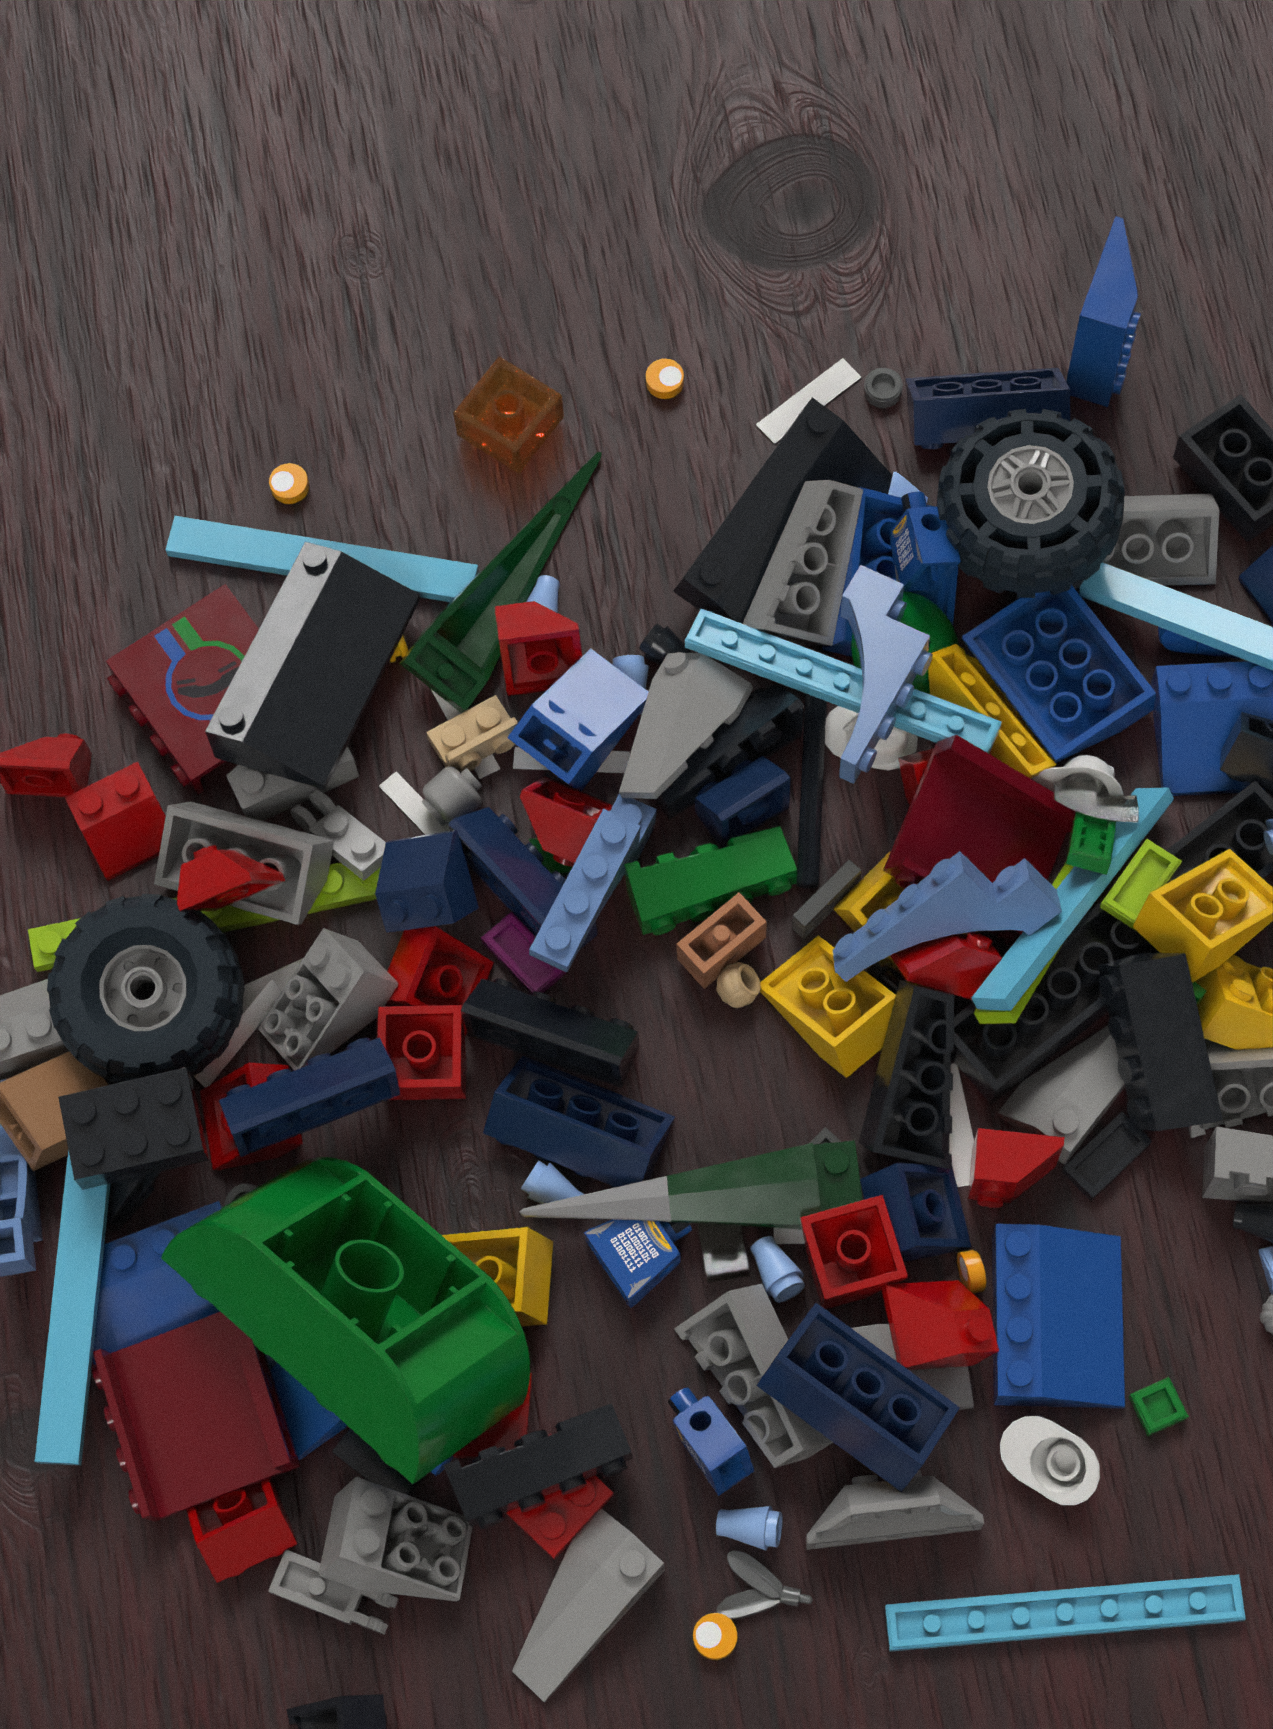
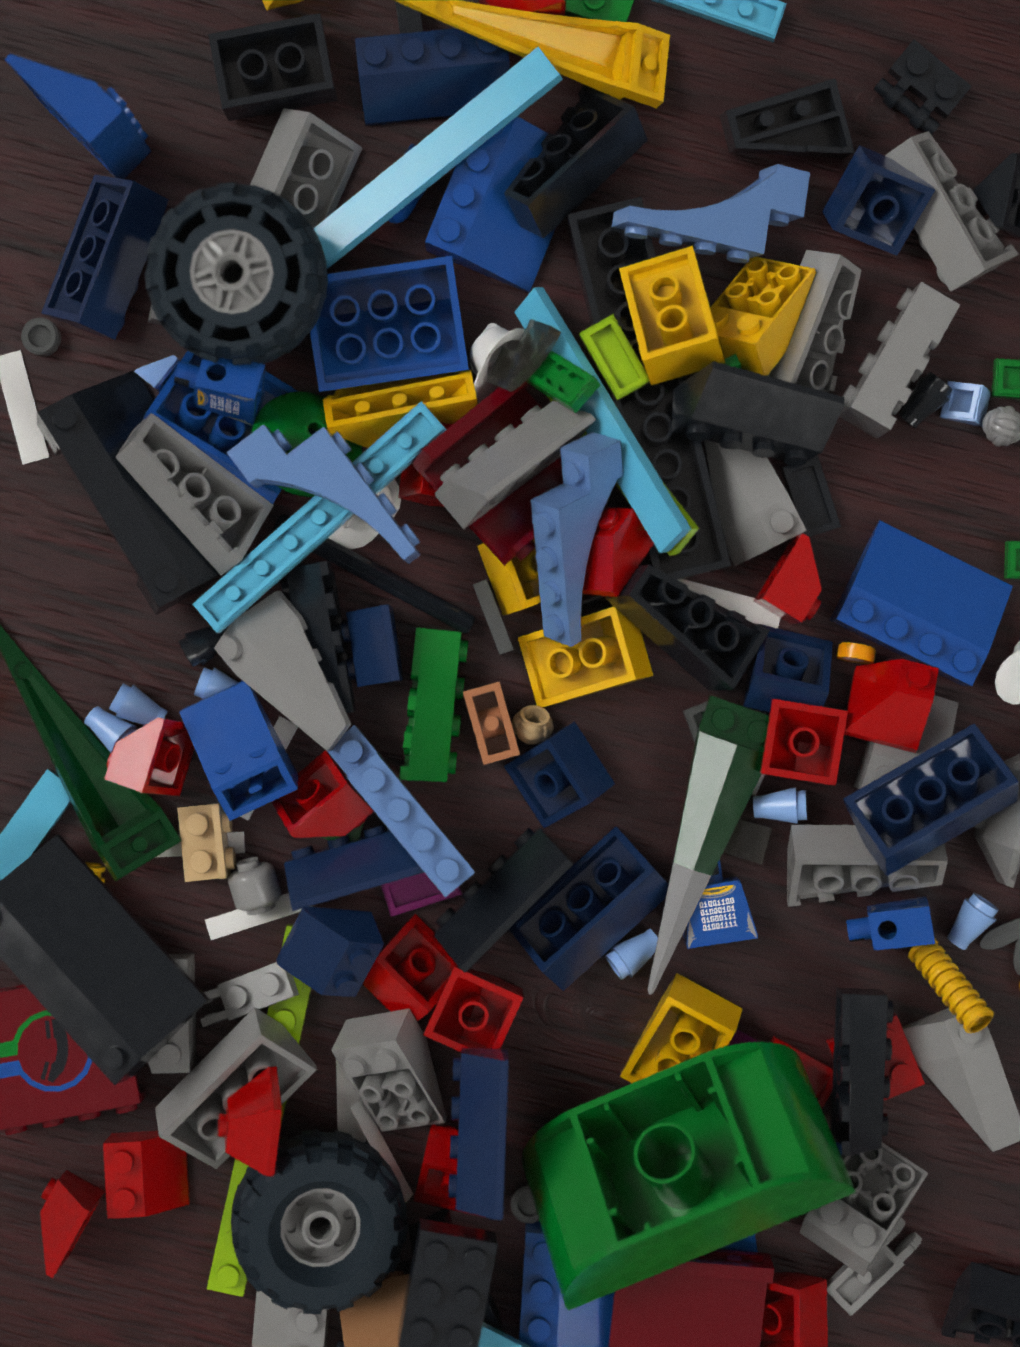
camera: 65 degrees left, 20 degrees up
(578, 607) = (135, 706): none -> light blue cone
(672, 1522) = (951, 986): none -> yellow piece
(701, 1032) = (559, 775): none -> dark blue slope
(981, 828) = (510, 462): none -> light grey slope

